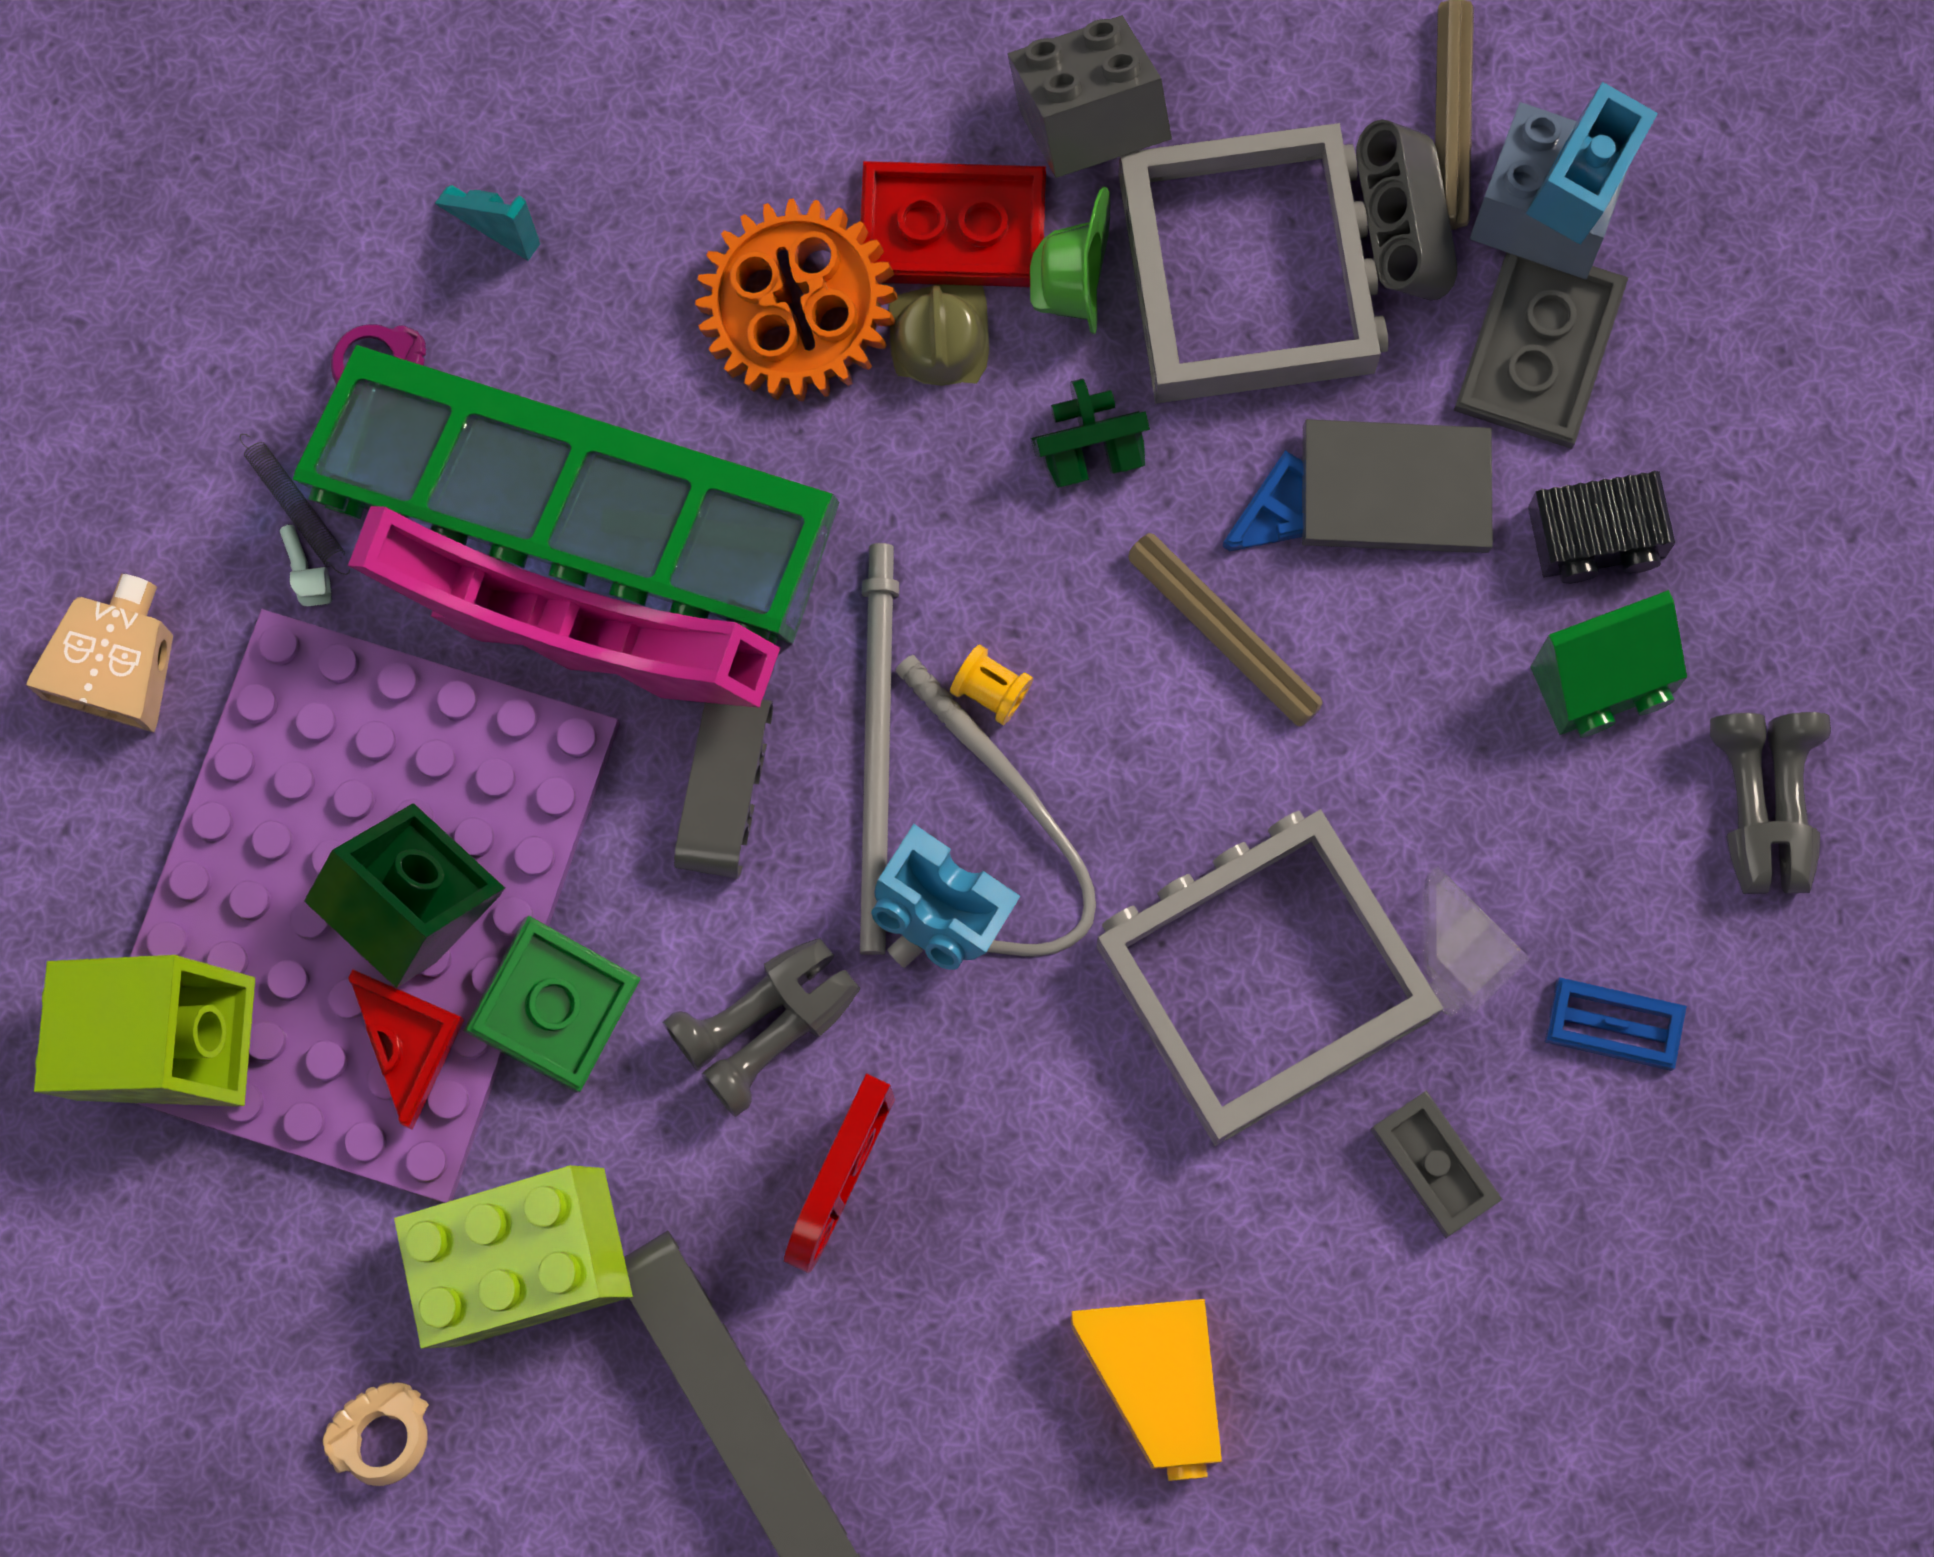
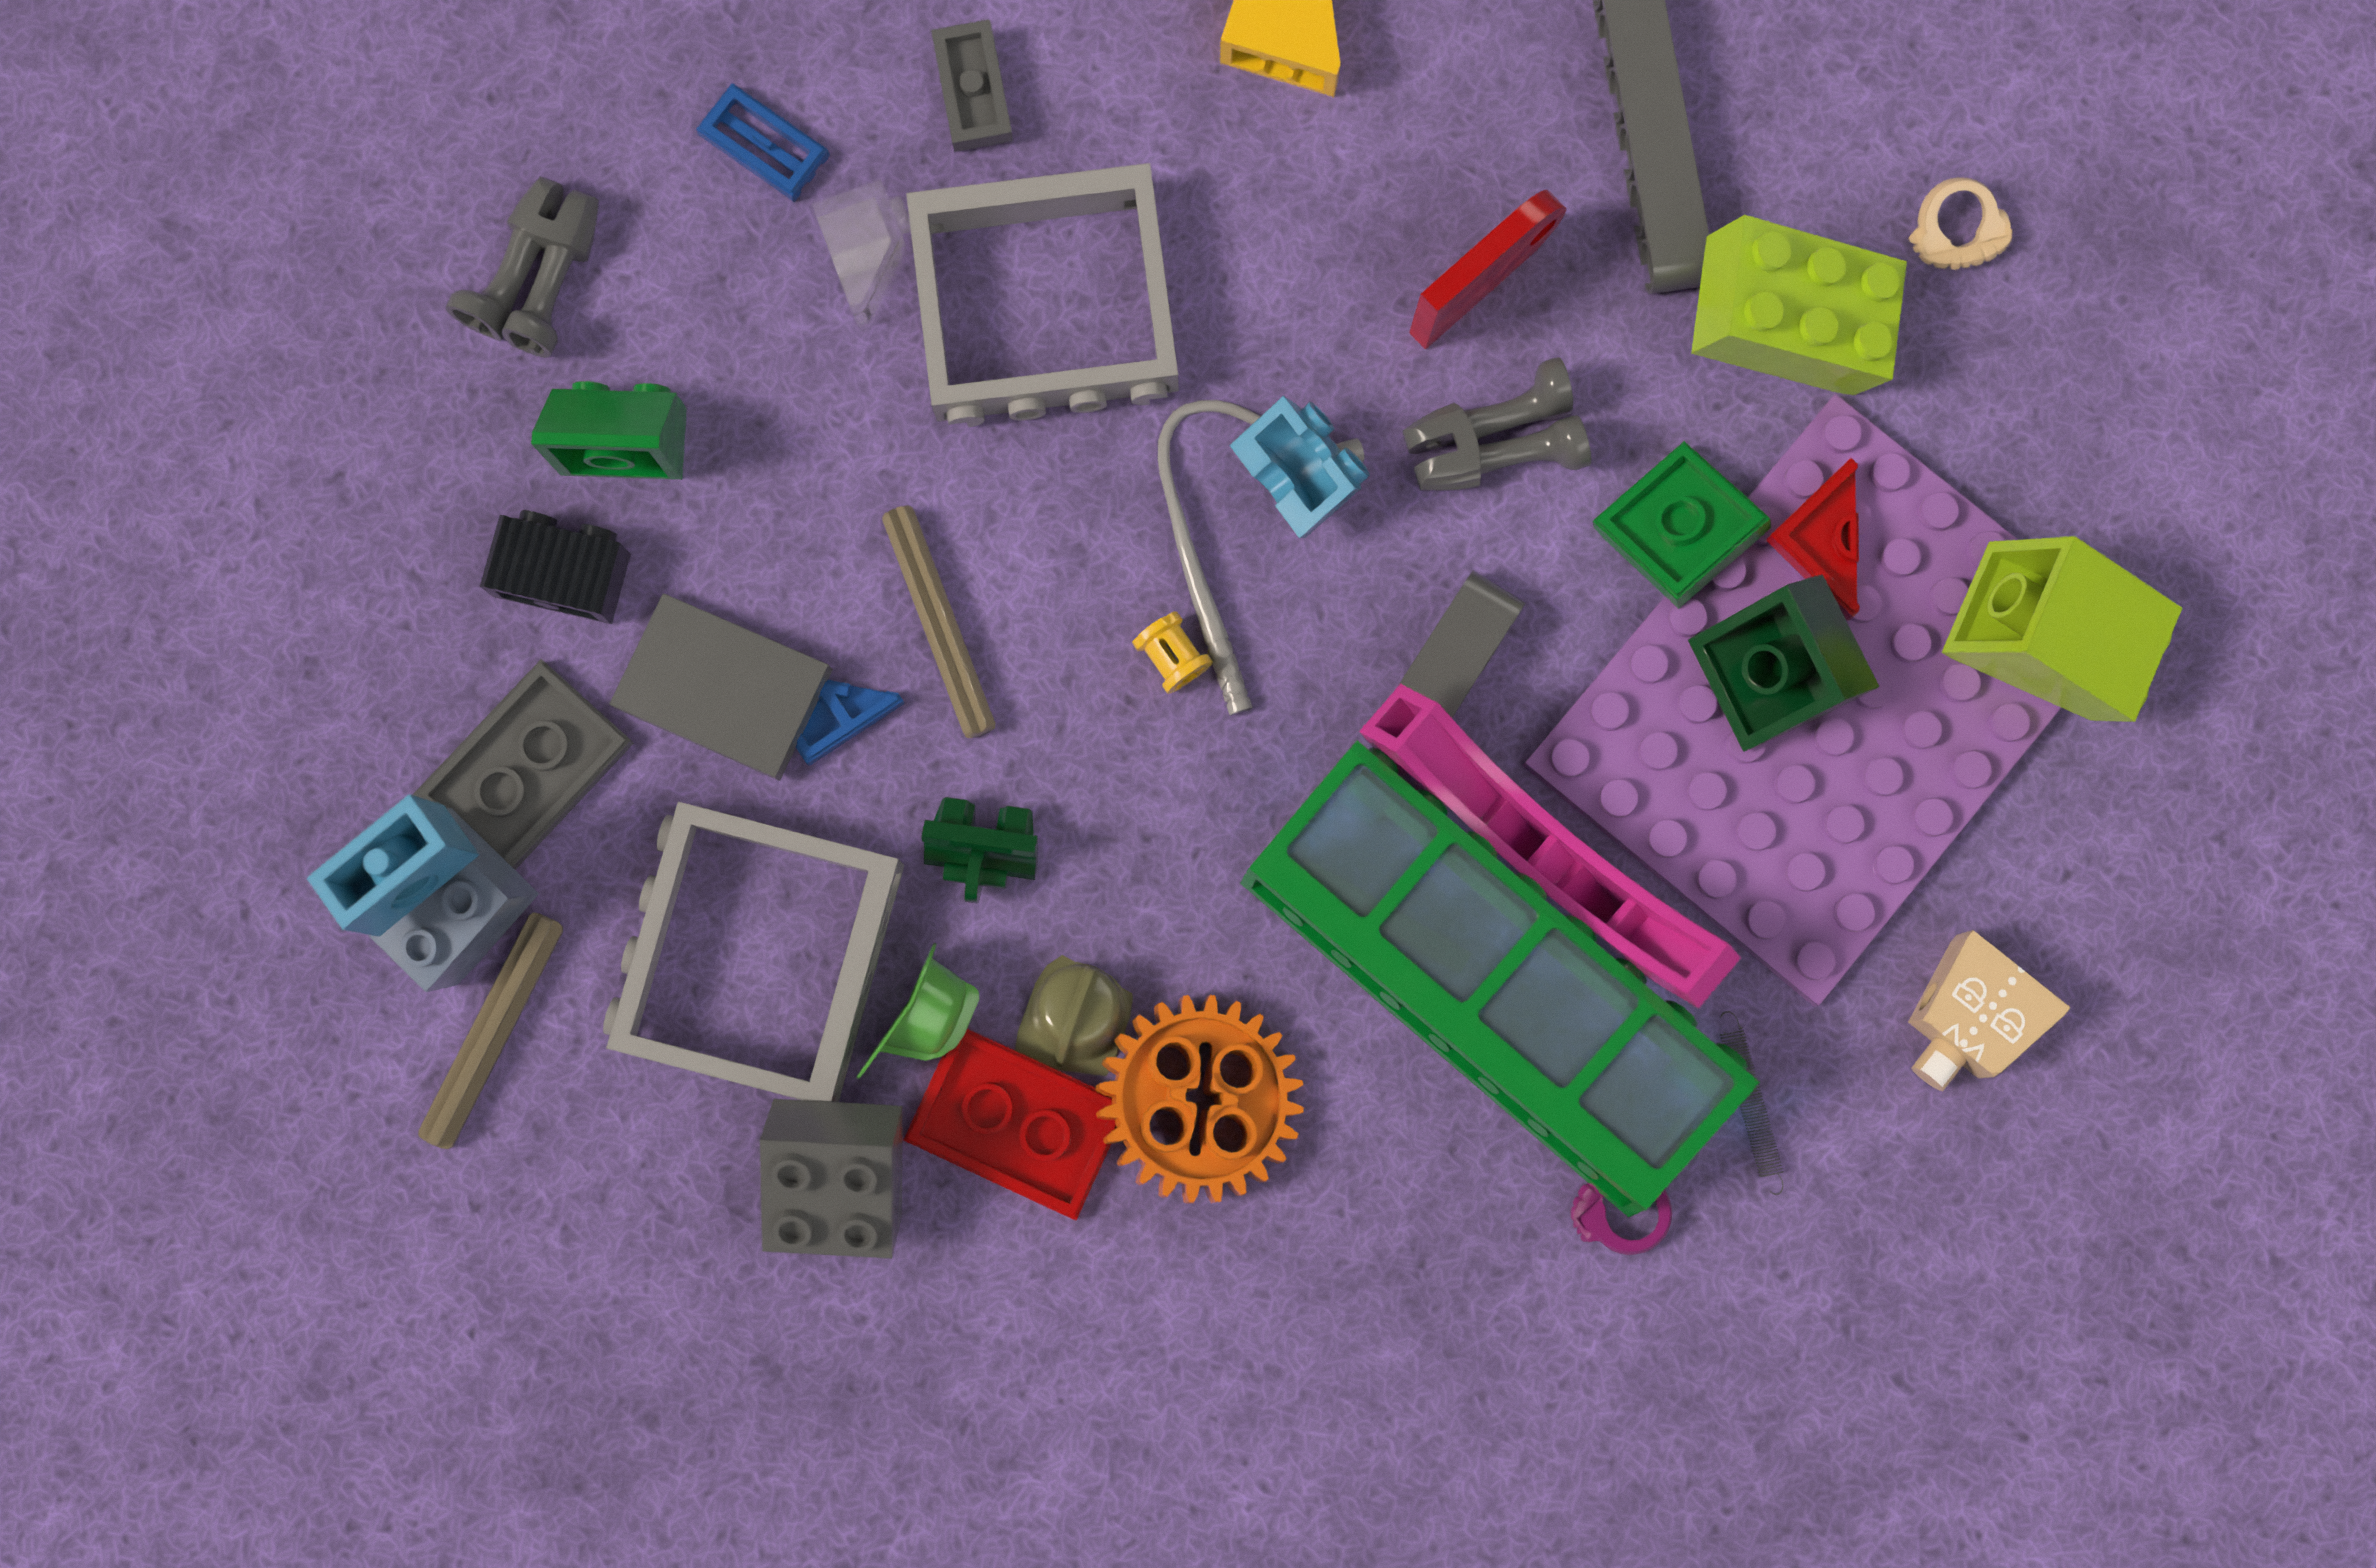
camera: 160 degrees left, 5 degrees up
(309, 584) = (1768, 1015): light aqua hand -> none
(487, 213) = (1463, 1315): teal tile -> none
(880, 590) = (1235, 788): light grey bar -> none
(1406, 210) = (559, 962): dark grey beam -> none

